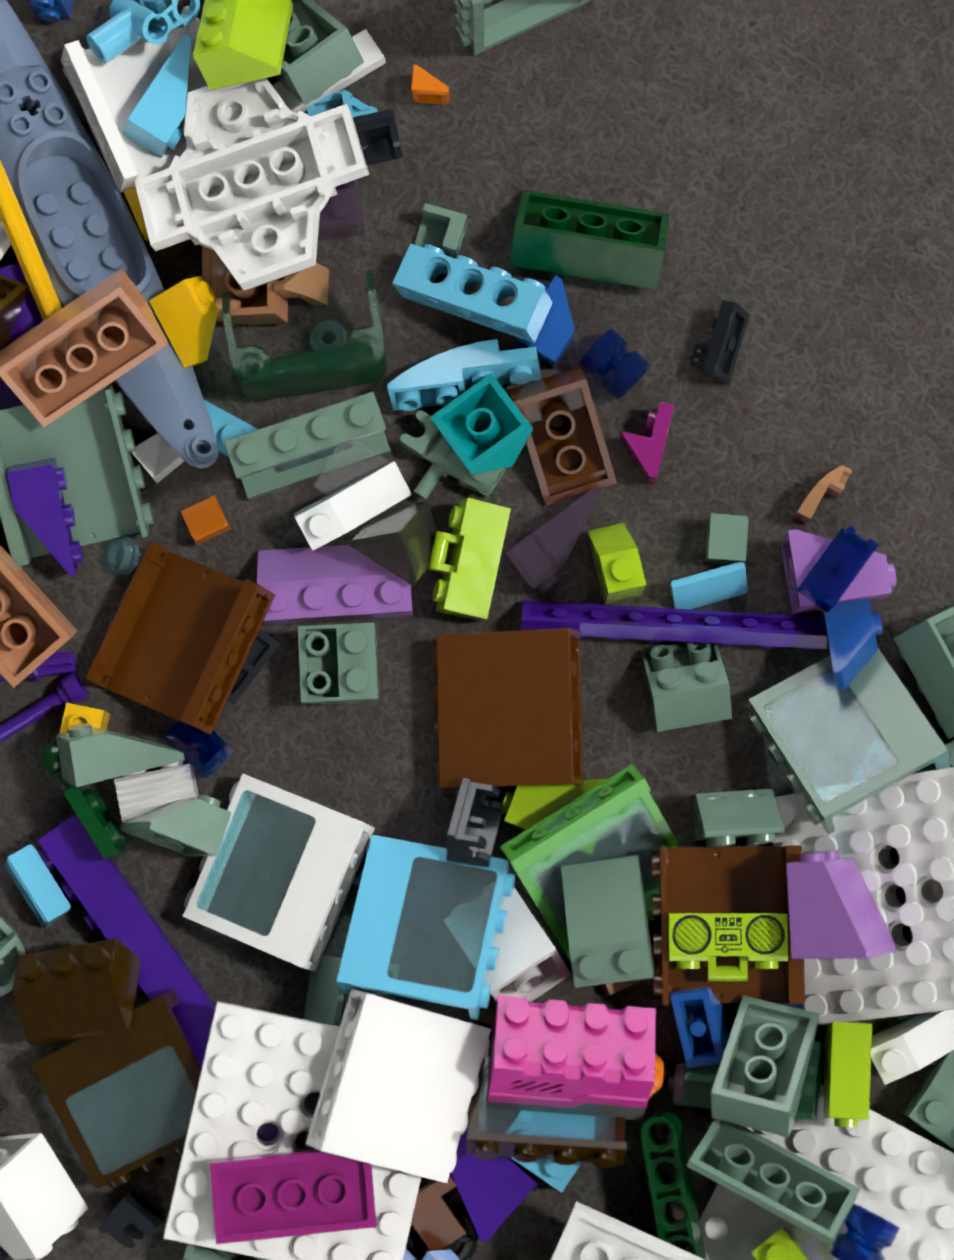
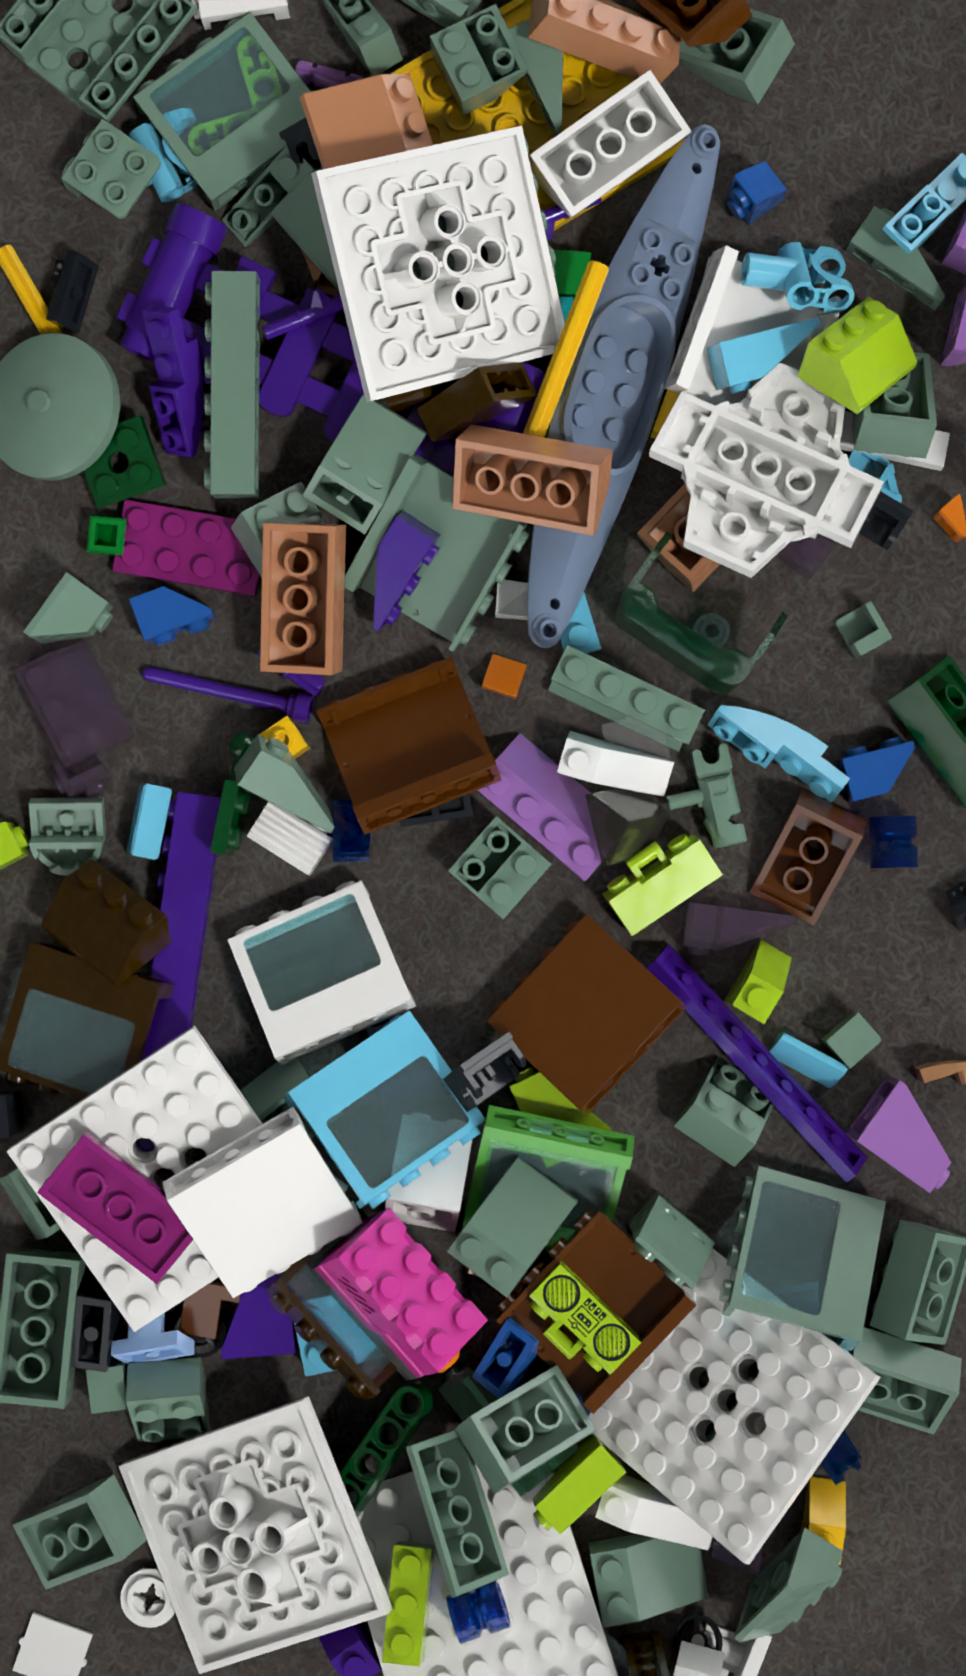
camera: 45 degrees right, 5 degrees up
(123, 555) = (424, 647): clear light blue plate -> none
(183, 827) = (287, 879): sand green slope -> none
(188, 318) = (626, 526): yellow slope -> none
(307, 284) = (732, 583): medium nougat slope -> none
(484, 427) = (759, 800): teal slope -> none
(520, 318) = (858, 749): medium azure brick -> none
(648, 451) = (857, 927): magenta slope -> none
(833, 910) = (674, 1373): medium lavender slope -> none
(836, 568) = (908, 1141): clear blue hinge -> none
(851, 638) = (871, 1194): blue slope -> none

